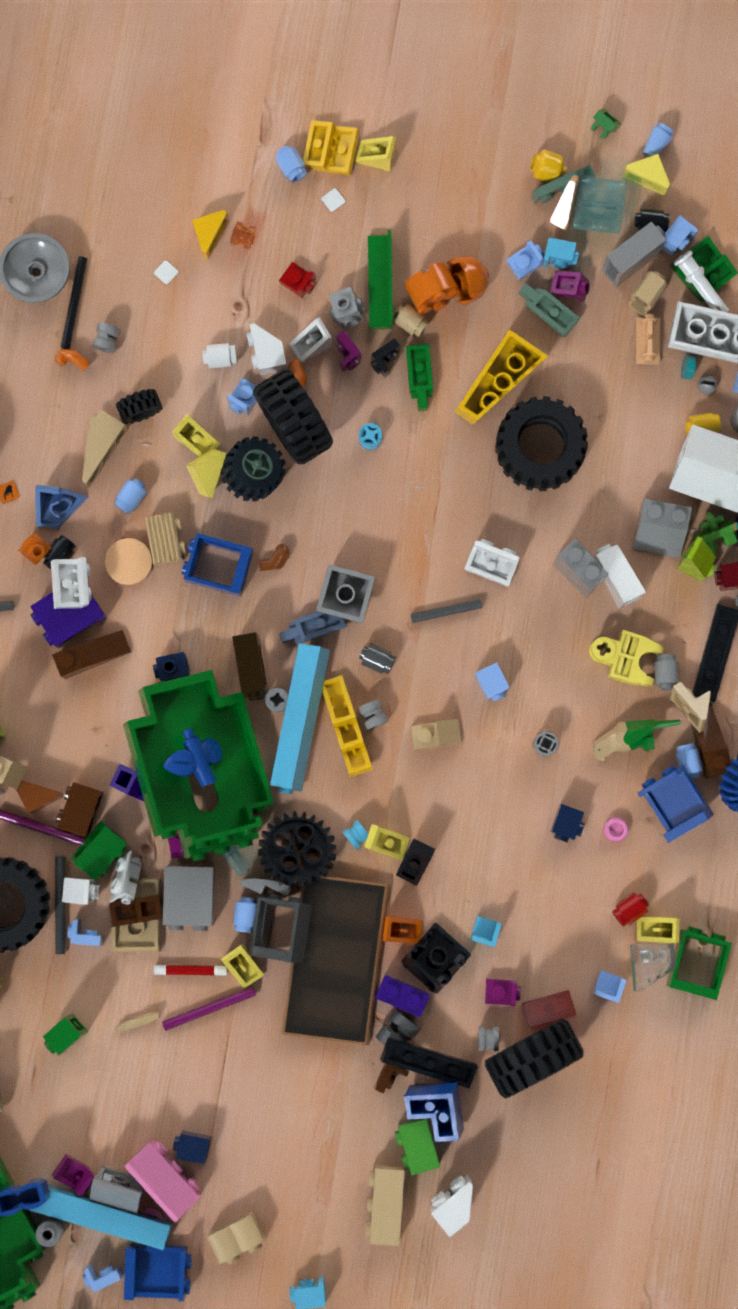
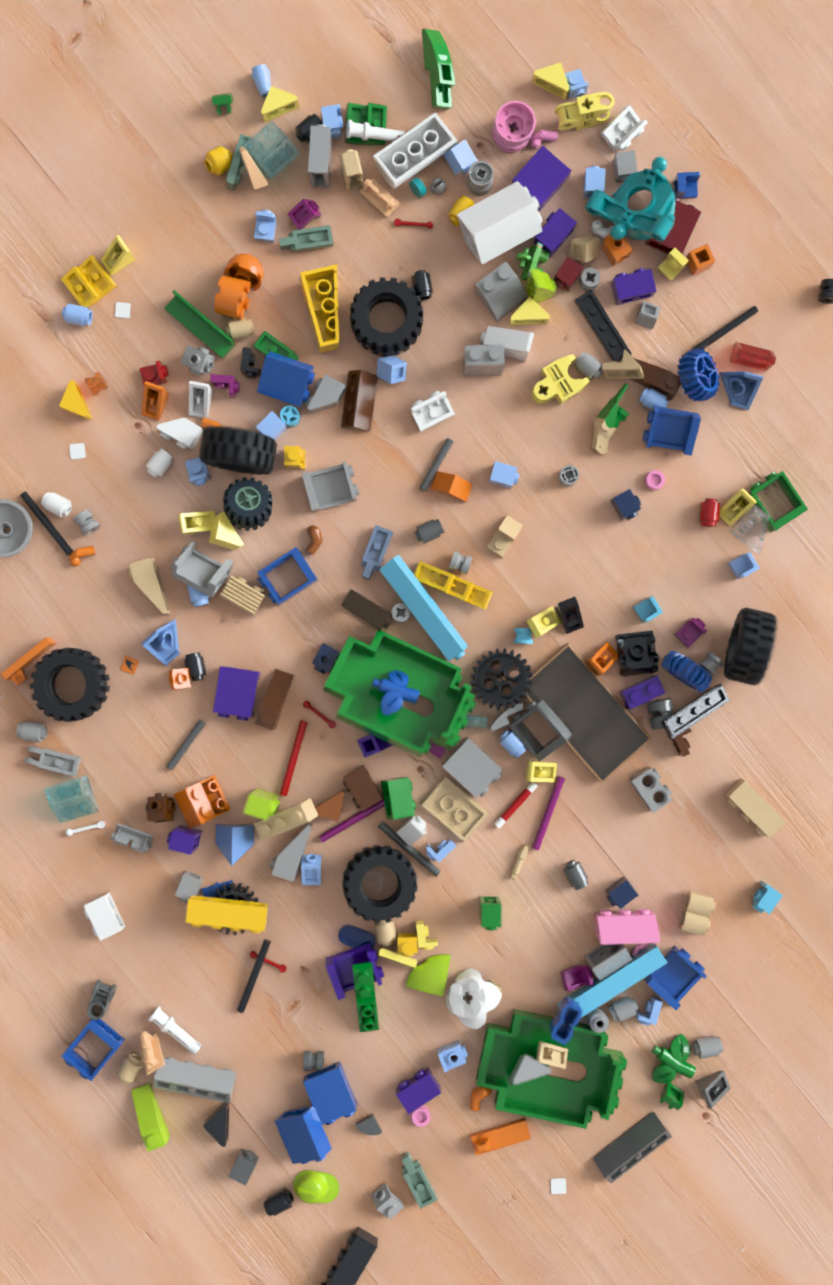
camera: 55 degrees left, 5 degrees up
(51, 720) = (293, 758): none -> red bar
(70, 583) = (221, 674): white bracket -> none
(82, 1249) = (623, 1009): none -> light grey brick
(99, 296) = (56, 504): none -> white brick
(115, 728) = (331, 724): none -> red hinge
(127, 868) = (432, 803): white hinge -> none
(128, 562) = (237, 629): light nougat tile -> none
(139, 406) = (147, 539): black tyre -> none
(139, 910) = (452, 807): reddish brown slope -> none
(152, 480) = (200, 571): none -> light grey panel
(172, 1086) = (575, 874): none -> dark grey brick
(273, 301) = (153, 400): none -> orange slope
(312, 1085) = (647, 792): none -> light grey brick
(335, 474) = (294, 457): none -> yellow brick
(337, 531) = (330, 487): none -> light grey panel
(344, 428) = (271, 426): none -> light blue brick
(346, 593) = (374, 514): light grey slope -> none
(400, 402) = (286, 379): none -> blue brick
(418, 1146) = (737, 759): bright green brick -> none
(419, 453) = (327, 395): none -> light grey slope
(439, 643) = (451, 486): none -> orange slope
(439, 1103) = (722, 727): blue brick -> none
(442, 487) = (359, 400): none -> reddish brown panel
(453, 1206) = (790, 768): white slope -> none
(459, 1020) = (687, 671): none -> blue gear
(497, 491) = (391, 369): none -> light blue panel
(549, 1008) = (724, 613): clear red slope -> none
(560, 253) = (279, 201): medium azure brick -> none
(601, 450) = (422, 284): none -> black brick
(640, 377) = (397, 222): none -> red hinge
(665, 572) = (529, 314): none -> light yellow slope

